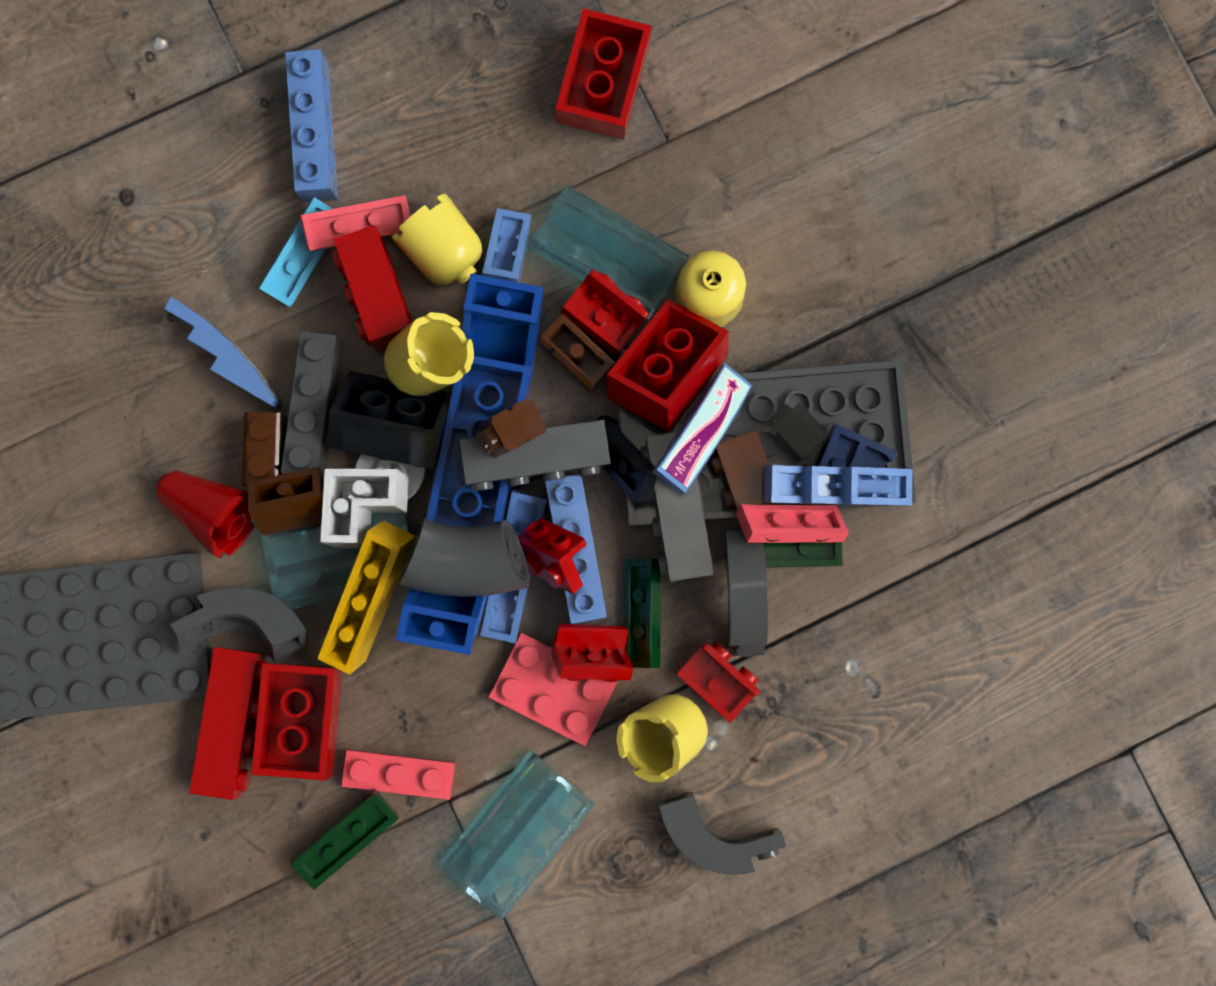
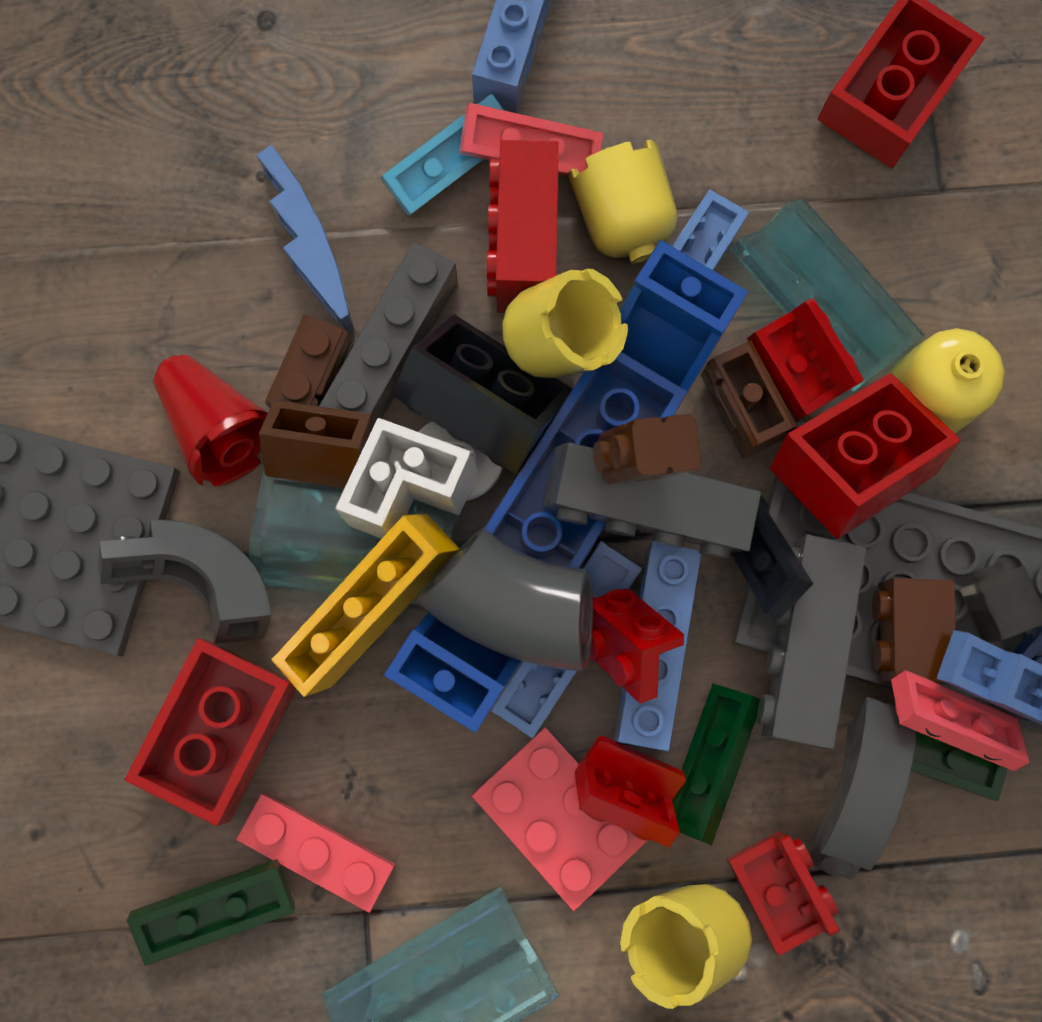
camera: 15 degrees right, 5 degrees down
(227, 724) = (121, 702): red brick -> none
(702, 429) = (883, 554): slope -> none

